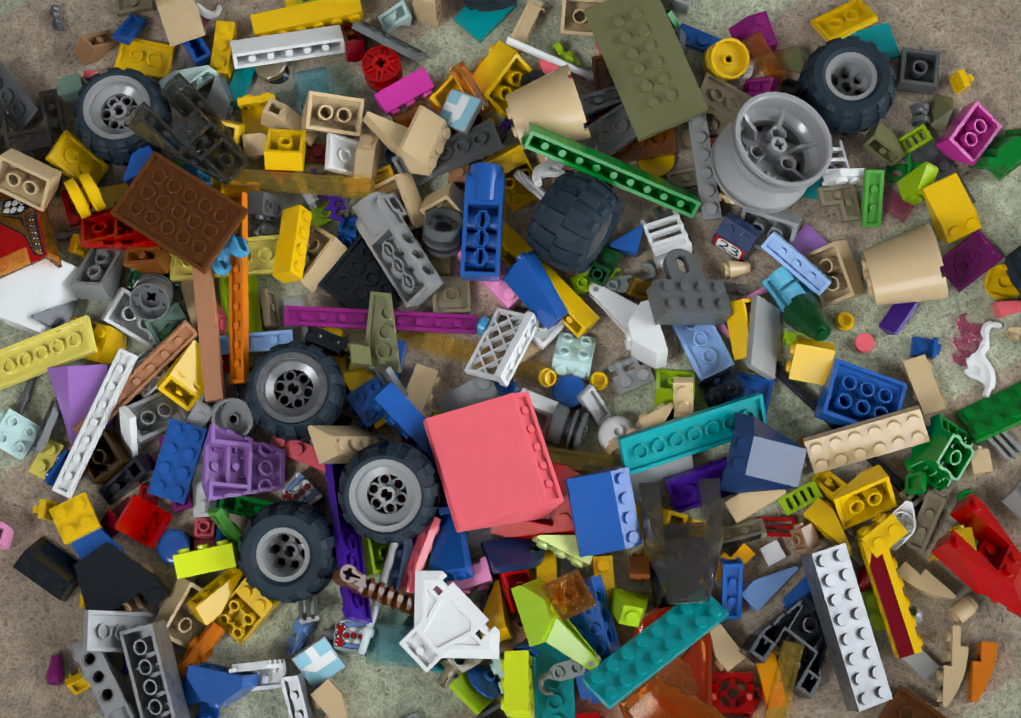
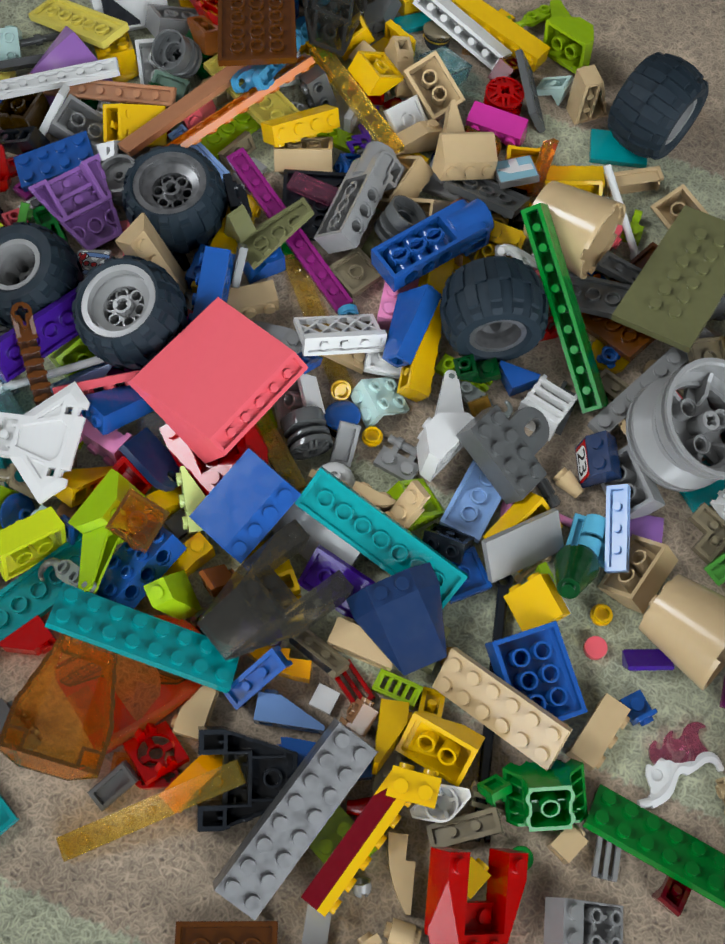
camera: 45 degrees right, 10 degrees down
(356, 274) = (312, 188): none -> clear pink tile
(657, 168) = (610, 352): none -> blue plate

